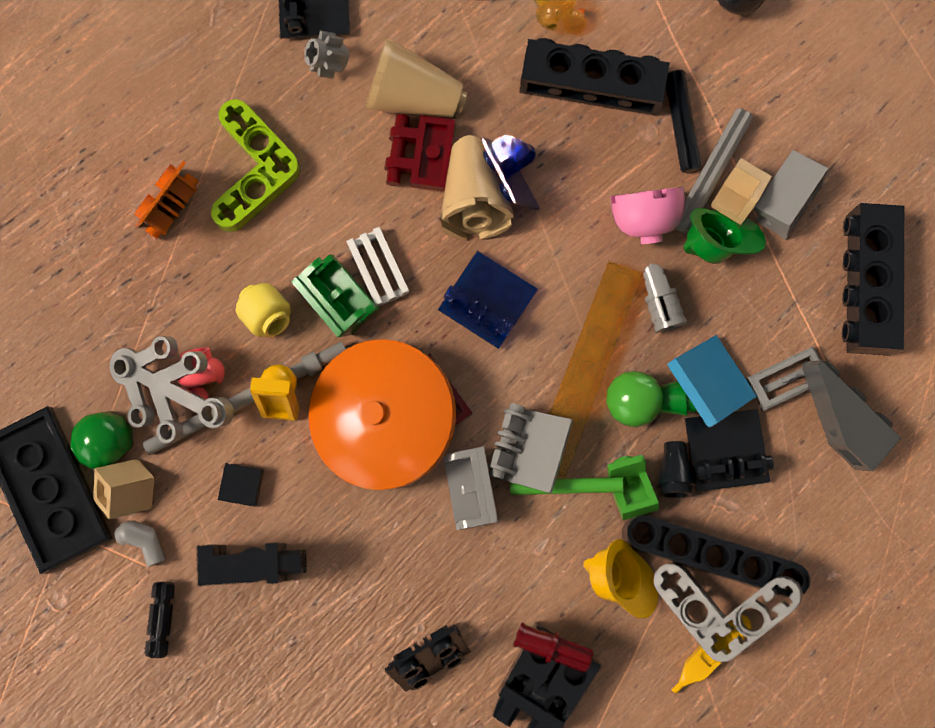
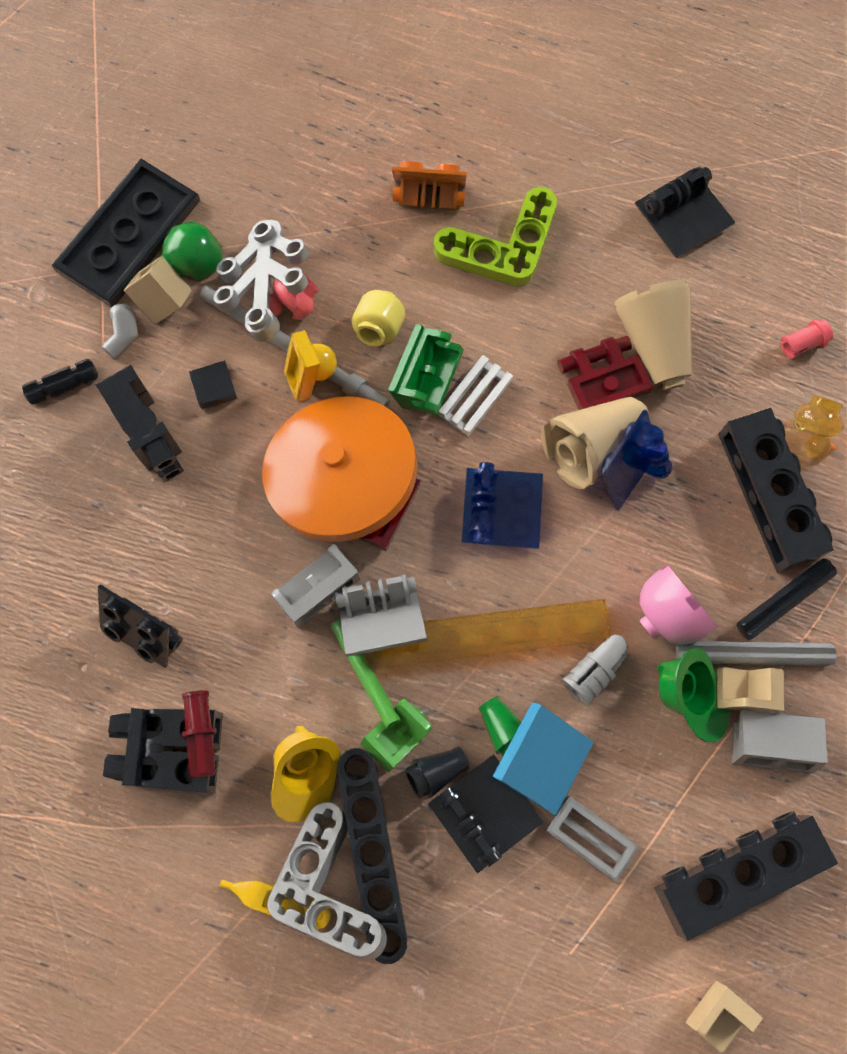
camera: 60 degrees right, 5 degrees down
(326, 54) = (643, 245): light grey gear -> none
(634, 399) = (483, 691): bright green hair -> none
(848, 422) = (578, 925): dark grey slope -> none

